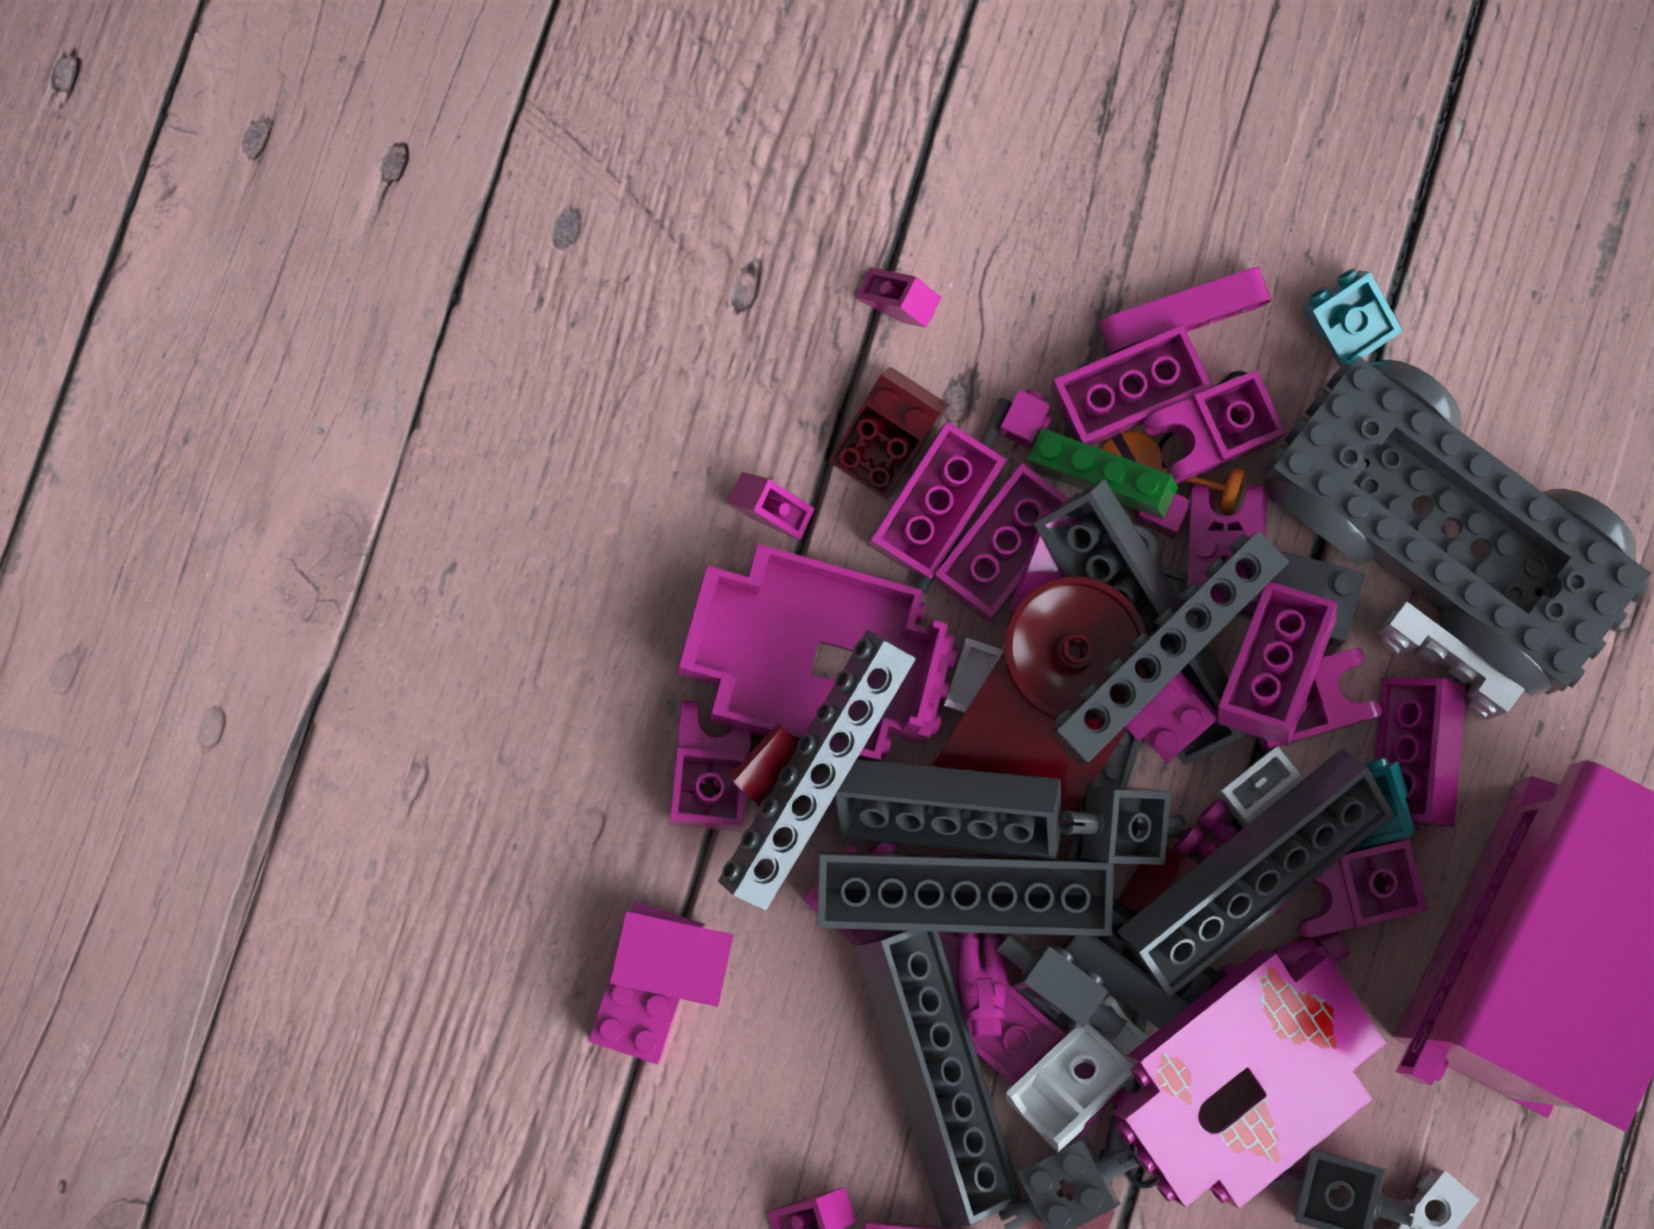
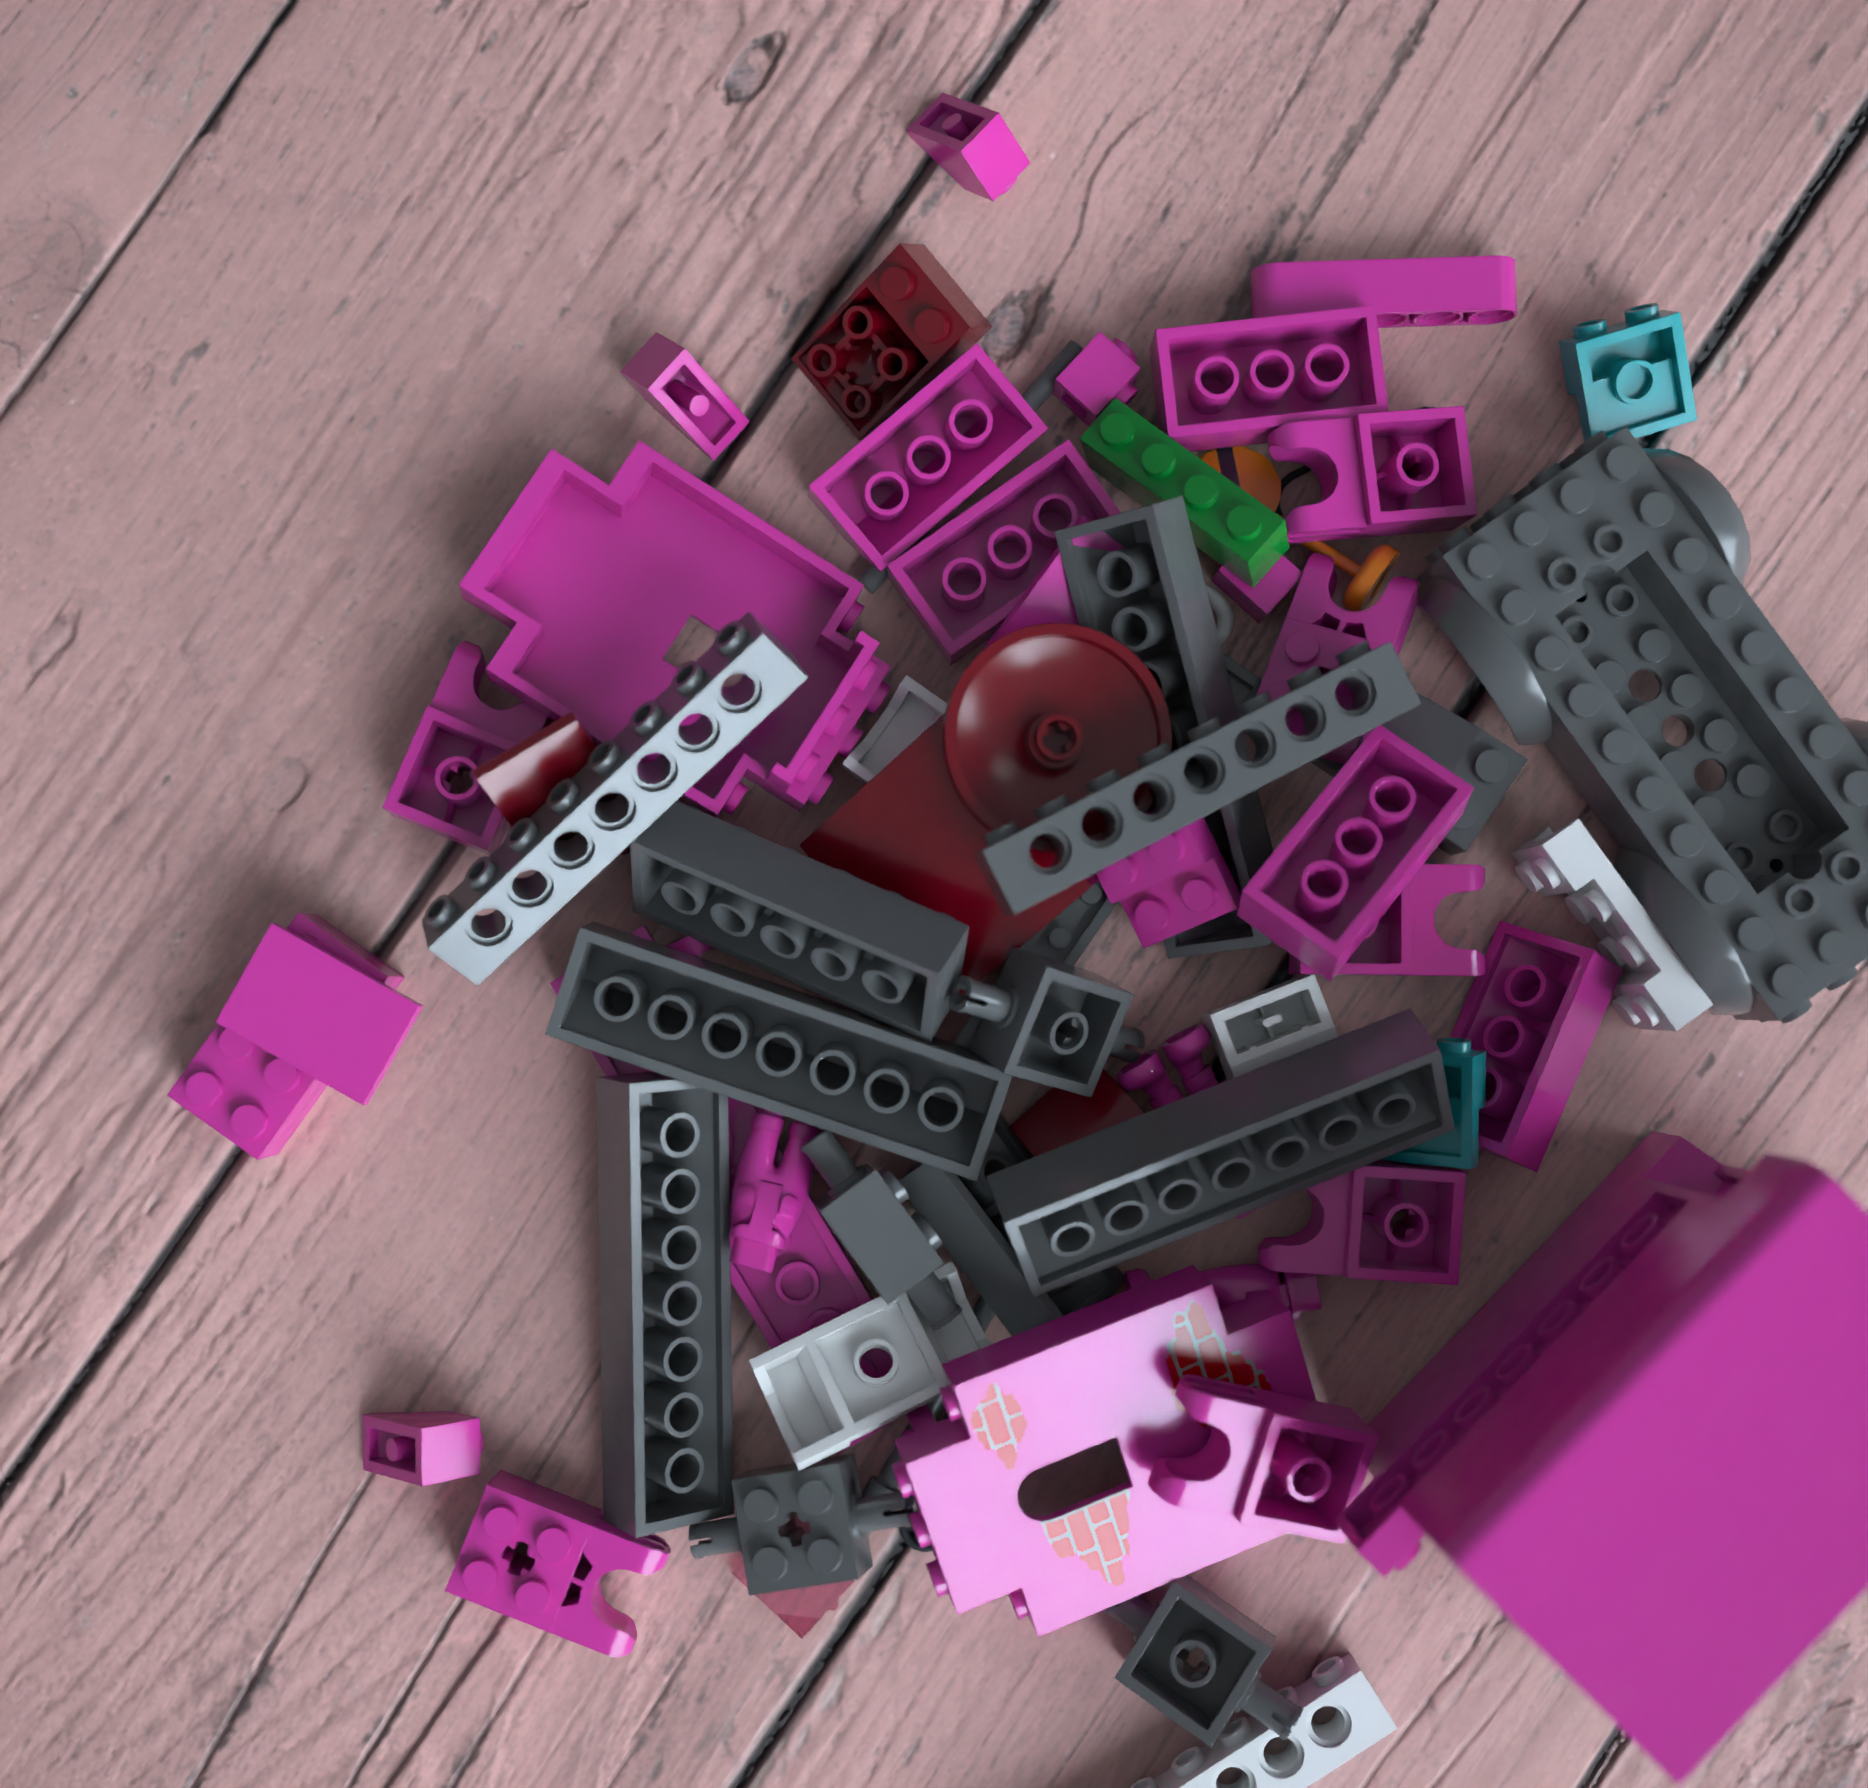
camera: 20 degrees right, 5 degrees up
(1345, 1050) = (1268, 1459): none -> dark pink brick

